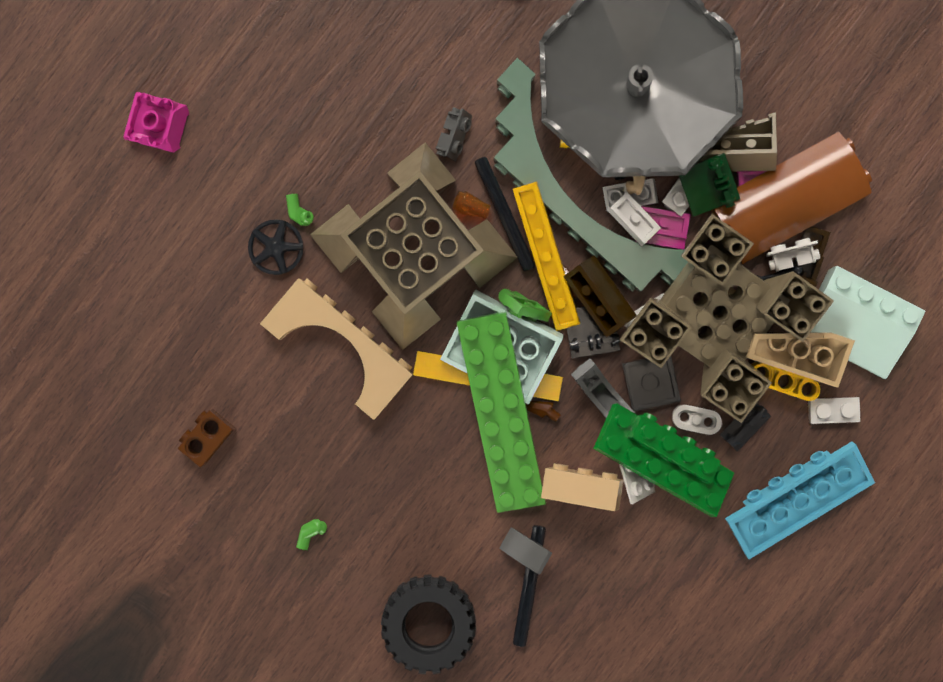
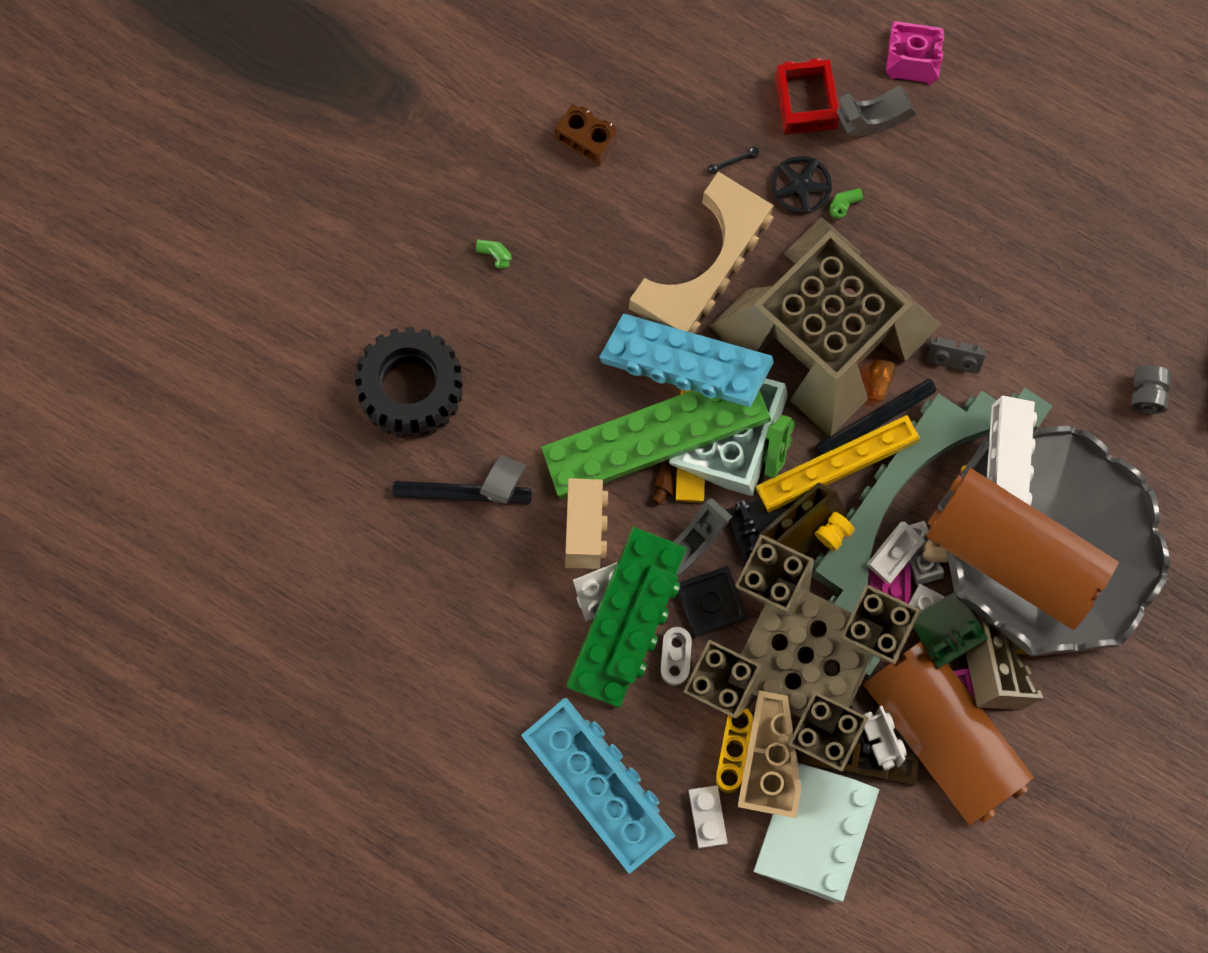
camera: 75 degrees right, 15 degrees down
(216, 169) = (877, 114): none -> dark grey arch
(216, 229) = (811, 120): none -> red window
(238, 286) = (753, 153): none -> black hinge
(440, 378) = (686, 360): none -> medium azure plate
(570, 107) = (1012, 445): none -> white brick
(612, 270) = (833, 532): none -> yellow wheel
(657, 112) = (1021, 548): none -> dark orange cylinder
(739, 433) = (676, 714): black hinge -> none

